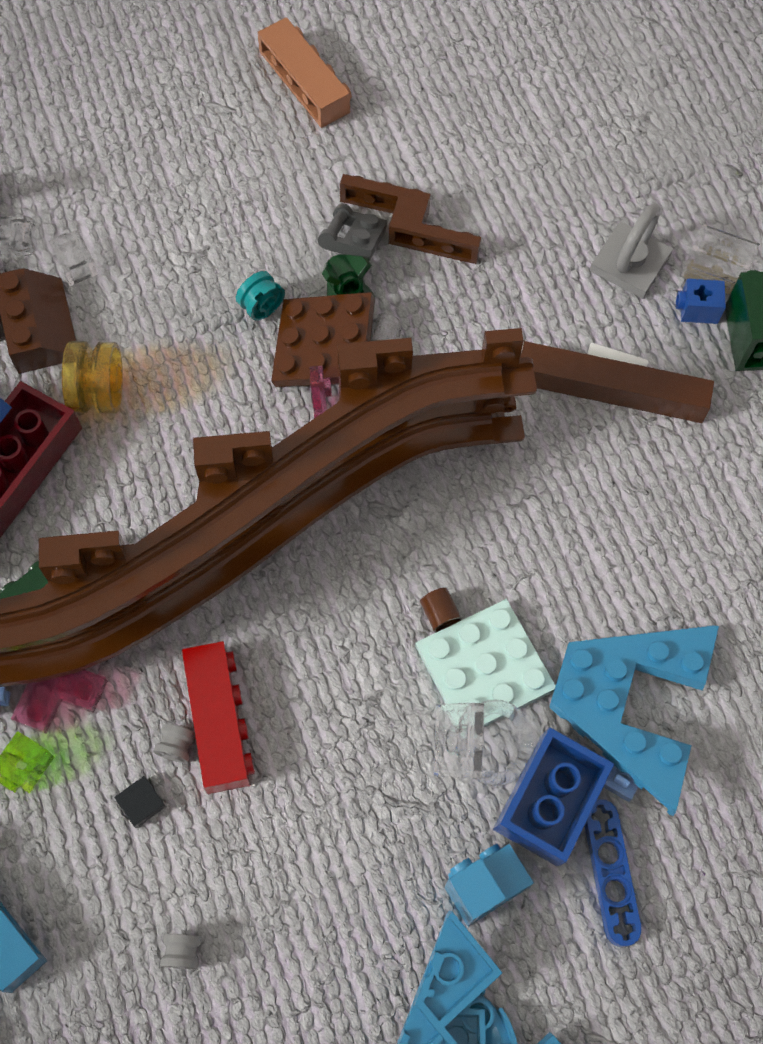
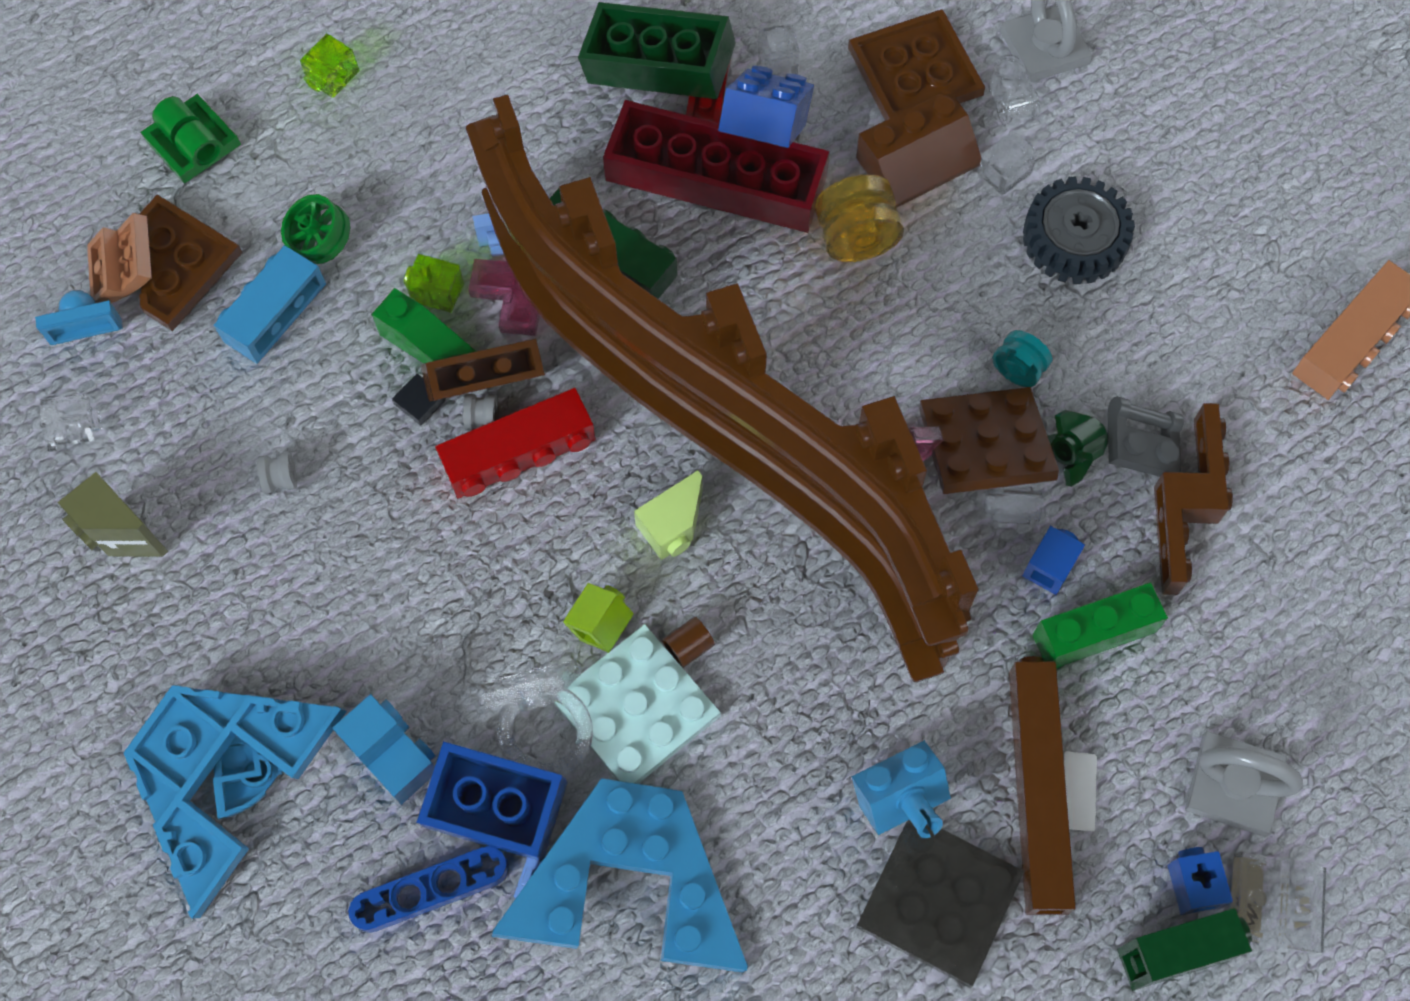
camera: 80 degrees right, 0 degrees up
(81, 780) = (417, 329): none -> green slope
(138, 730) = (482, 369): none -> reddish brown brick
(154, 226) = (1078, 230): none -> wheel
(326, 597) = (671, 517): none -> yellowish green slope
(402, 676) = (599, 616): none -> lime brick
(436, 323) = (1053, 559): none -> blue brick
(497, 294) = (1100, 625): none -> green brick
(602, 473) = (903, 790): none -> dark azure brick
(683, 476) = (941, 901): none -> clear smoke plate

